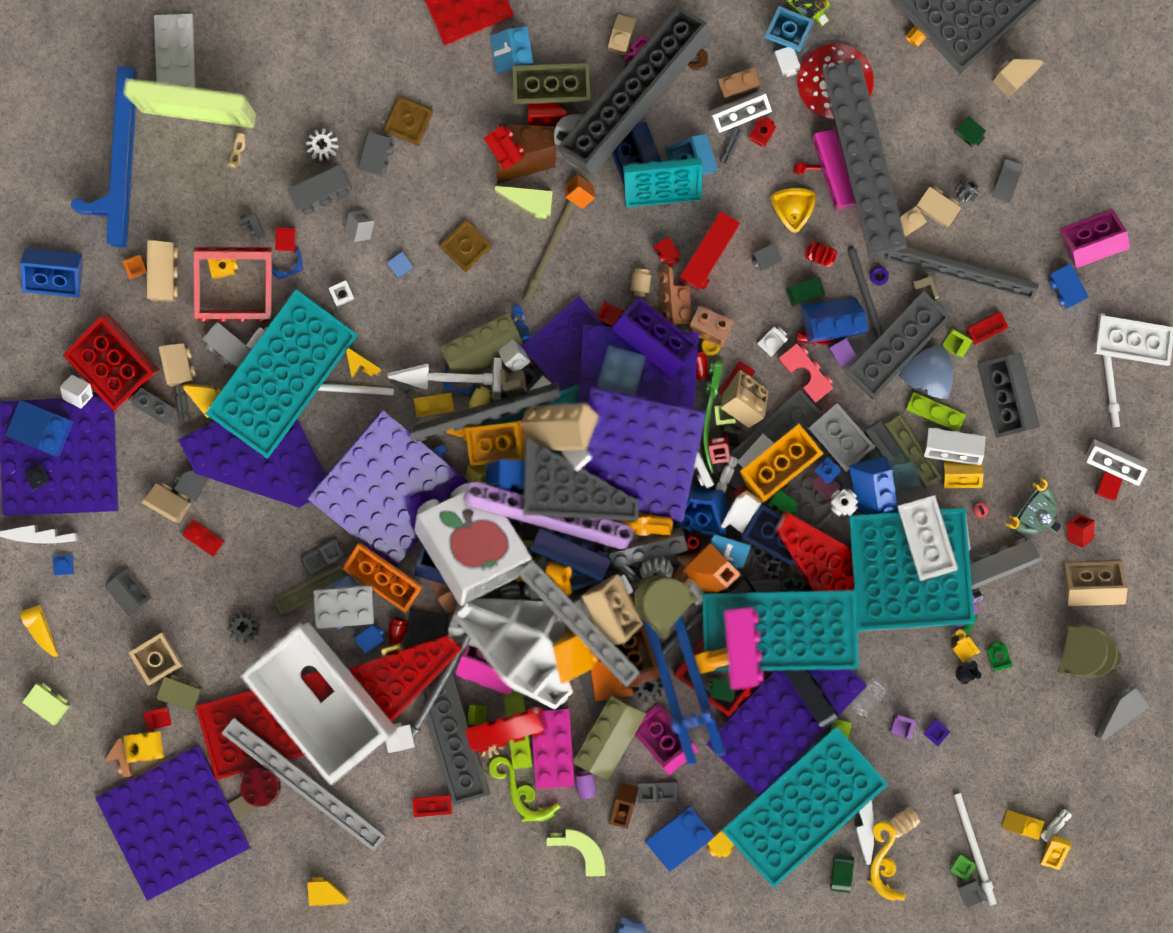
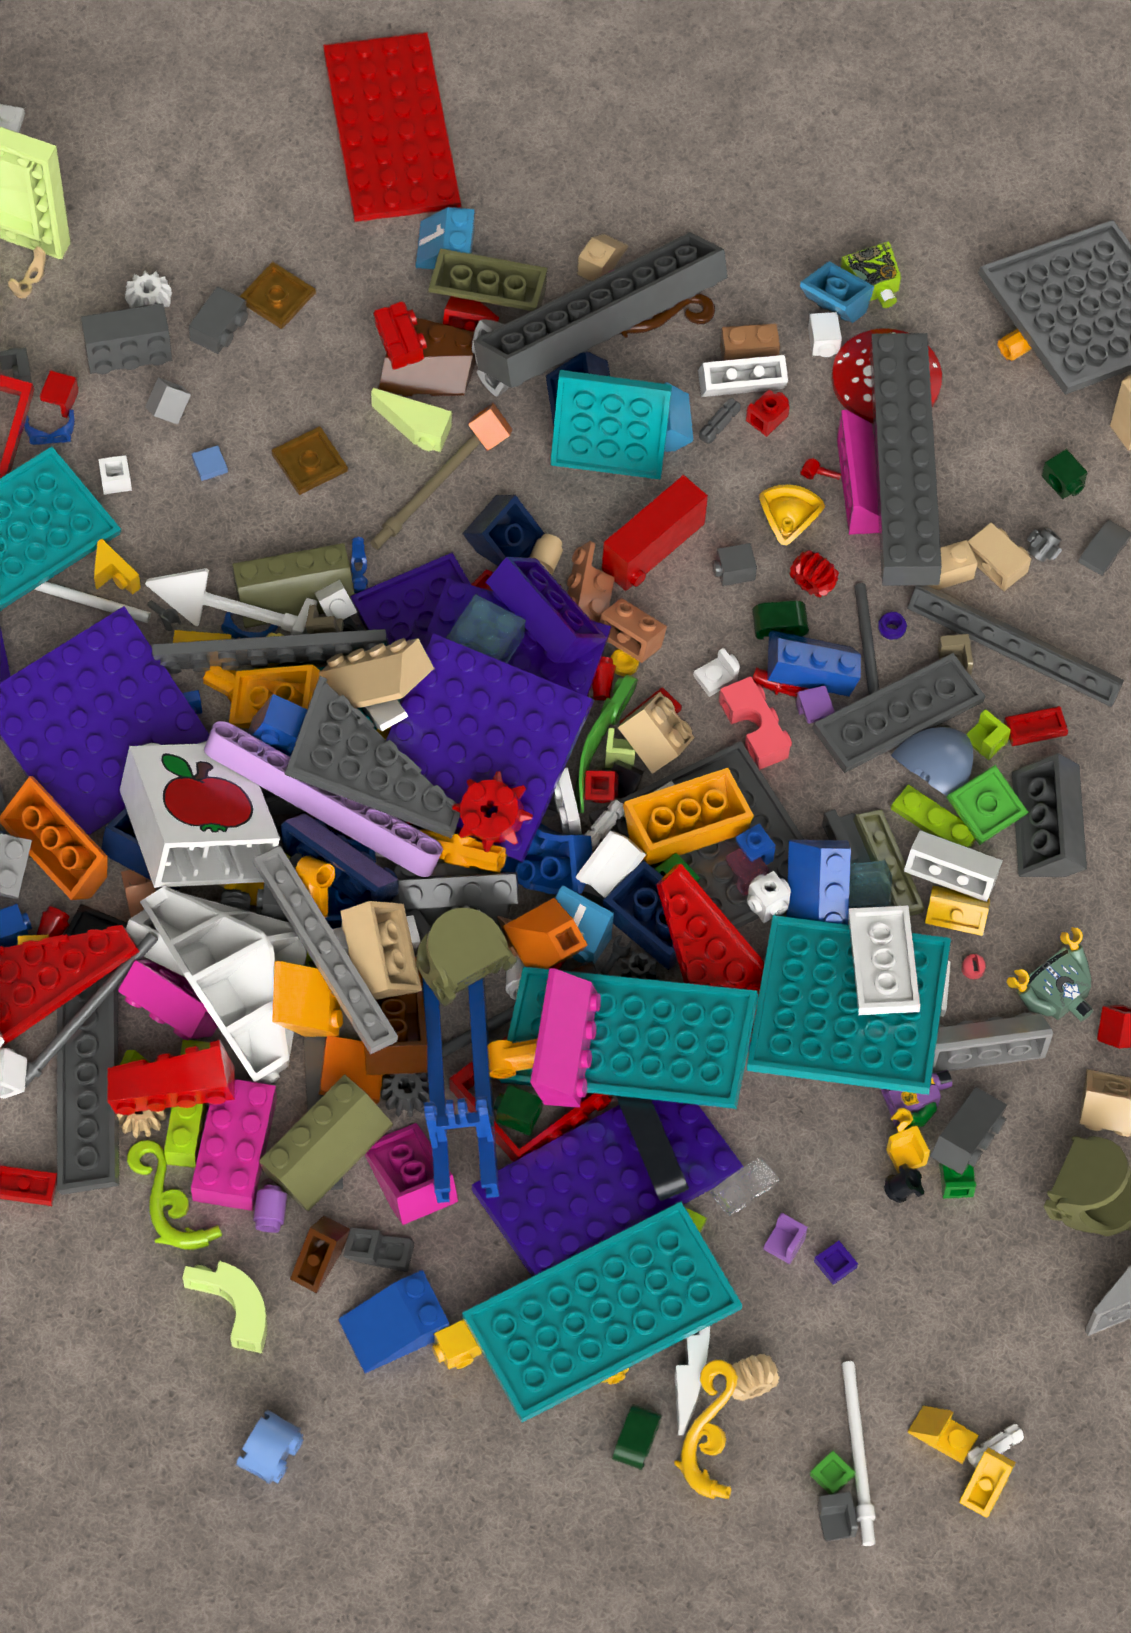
camera: 10 degrees right, 25 degrees down
(609, 272) = (503, 530): none -> dark blue slope
(663, 491) = (500, 825): none -> red brick
(667, 252) = (593, 524): red brick -> none
(698, 543) = (526, 903): red cone -> none
(841, 437) = (785, 809): light grey plate -> none
(968, 398) = (987, 804): none -> bright green tile
(1002, 631) = (970, 1131): none -> dark grey brick

